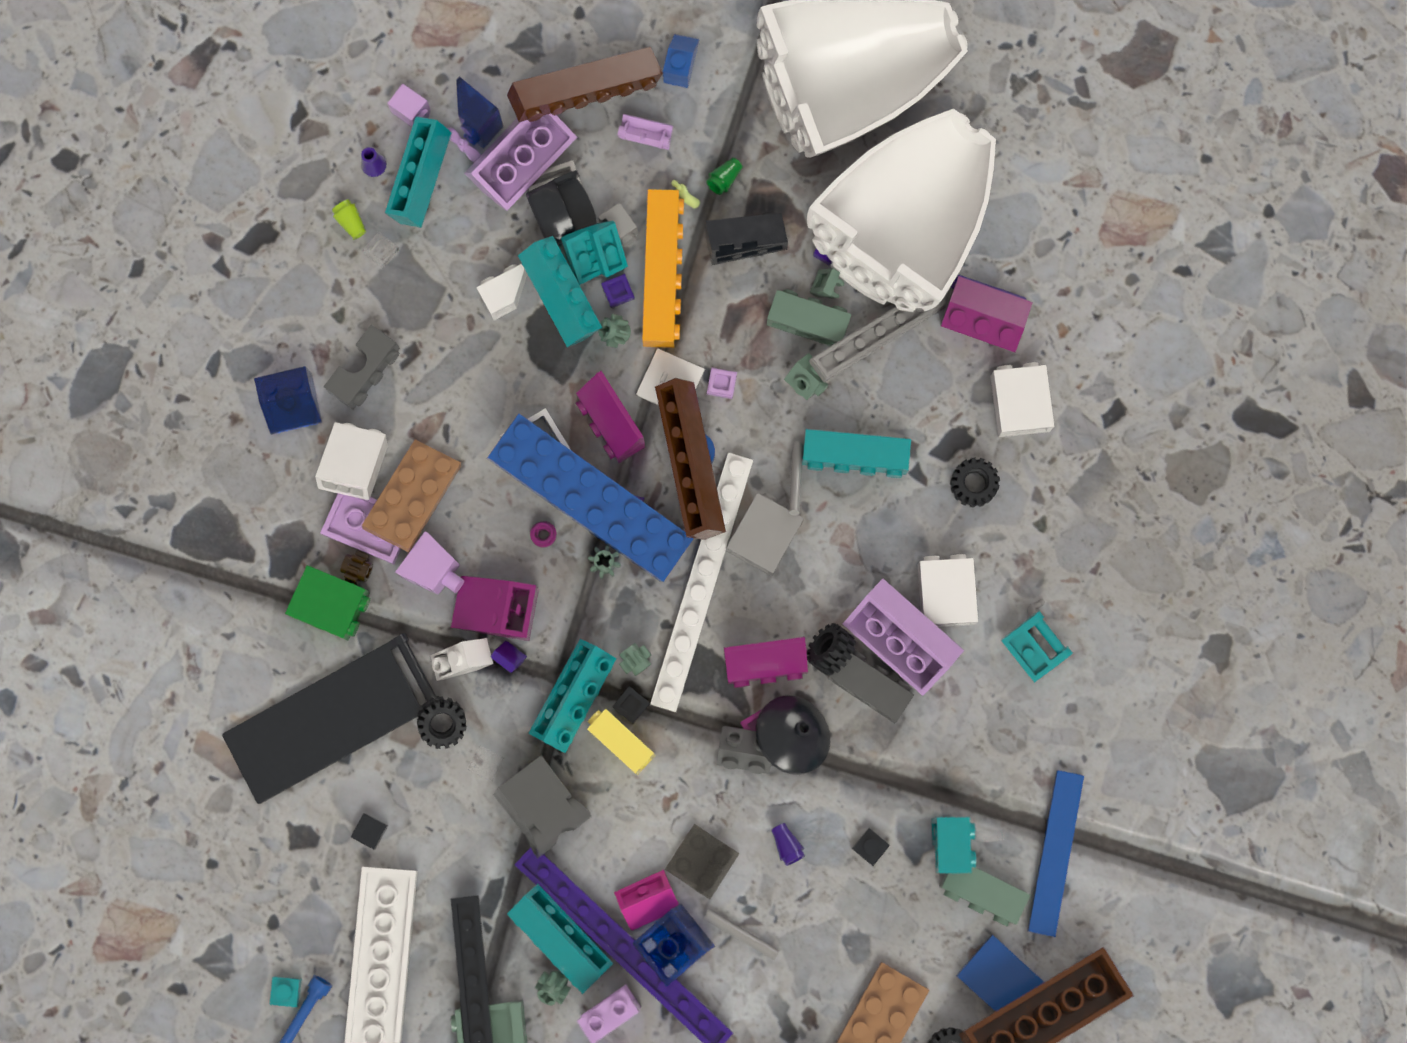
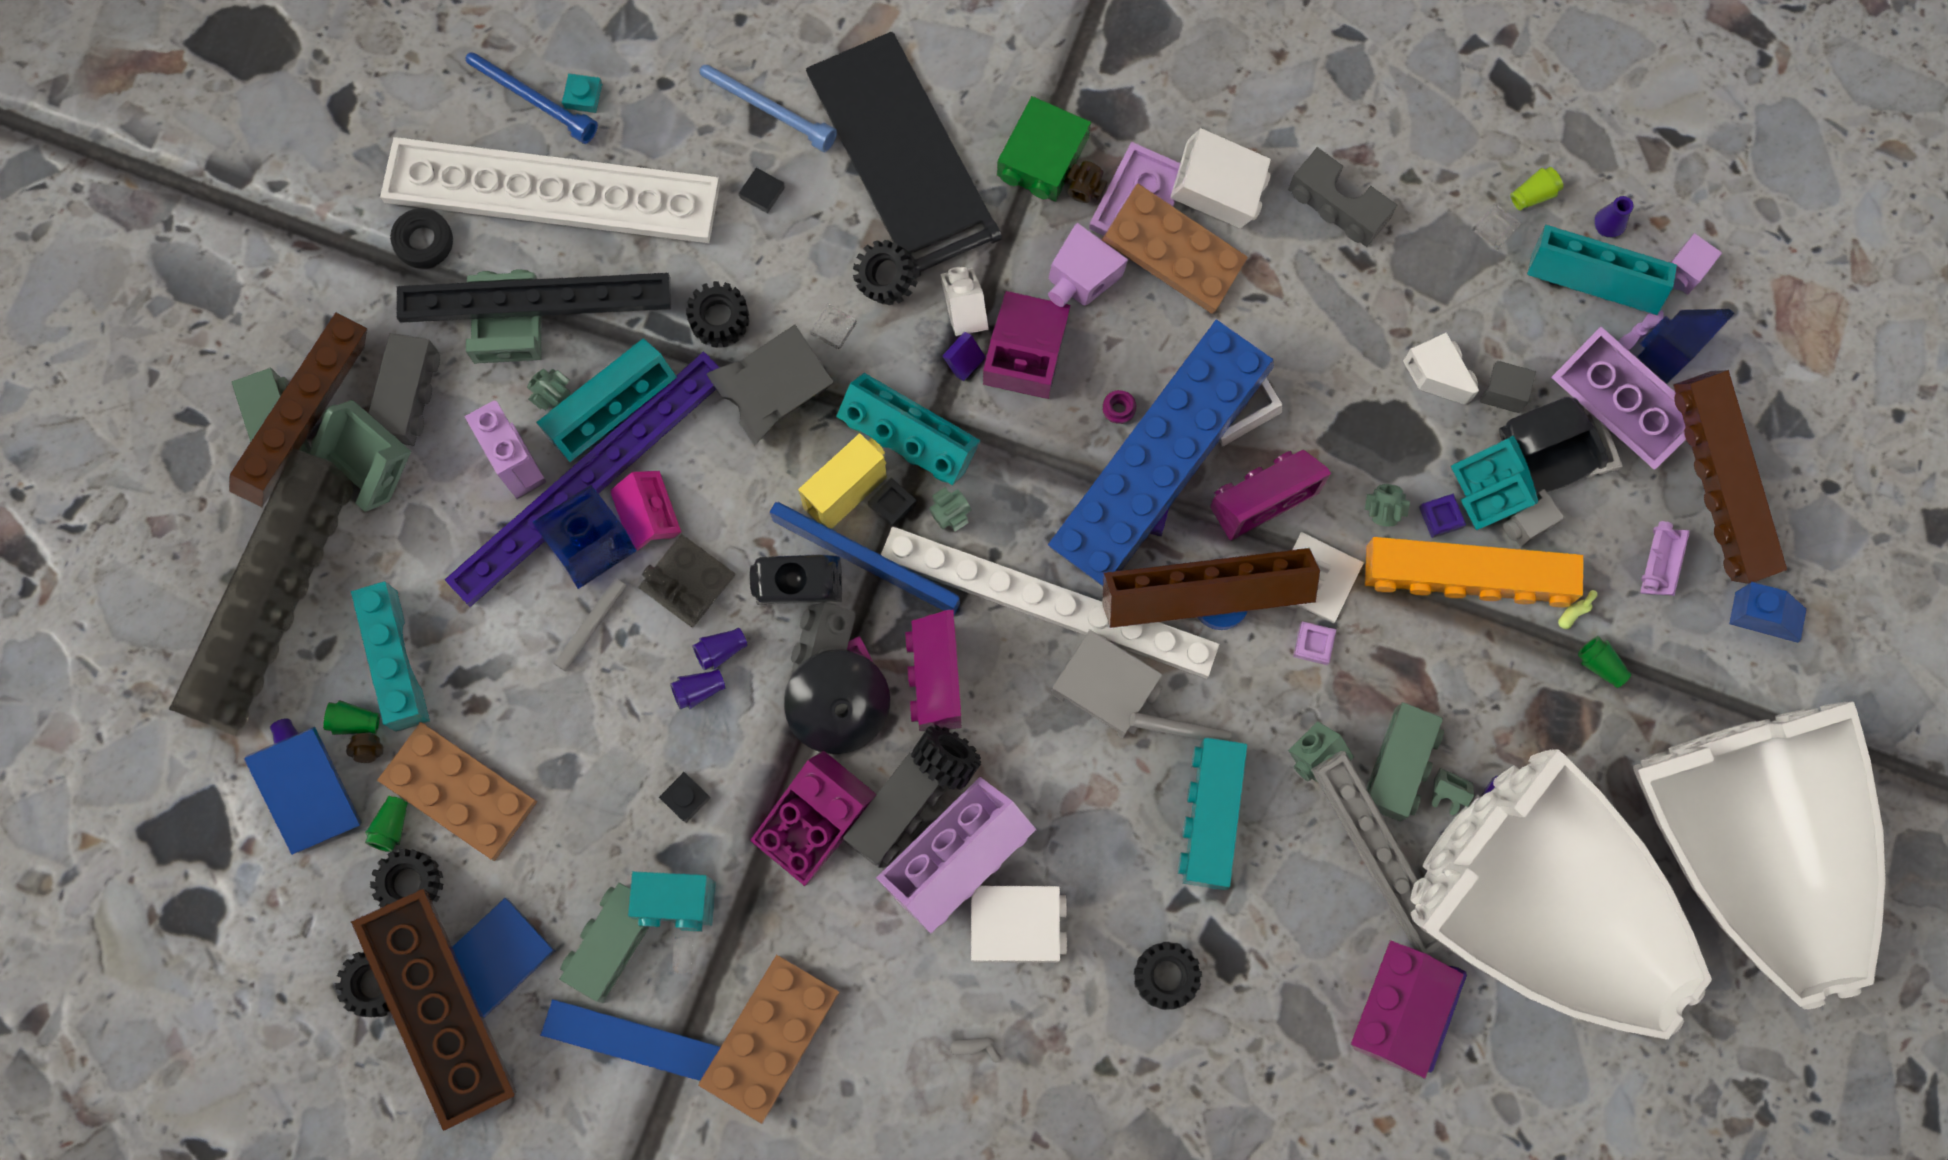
camera: 90 degrees right, 5 degrees down
(288, 400) = (1302, 111): clear blue slope -> none
(319, 786) = (821, 135): none -> medium blue piece
(464, 856) = (713, 296): none -> black tyre
(514, 239) = (1509, 387): none -> dark grey panel
(559, 291) = (1441, 434): teal brick -> none
(596, 560) = (1082, 469): sand green gear -> none
(677, 722) = (864, 558): none -> blue tile
(701, 772) = (796, 579): none -> black piece
(745, 237) = (1517, 680): black wedge -> none
(755, 831) = (718, 648): none -> dark purple cone
(879, 746) = (812, 817): none -> magenta slope
(1022, 400) = (1283, 1052): white brick -> none
(1030, 653) = (925, 1033): teal plate -> none
(1043, 766) = (768, 1039): none -> medium nougat plate

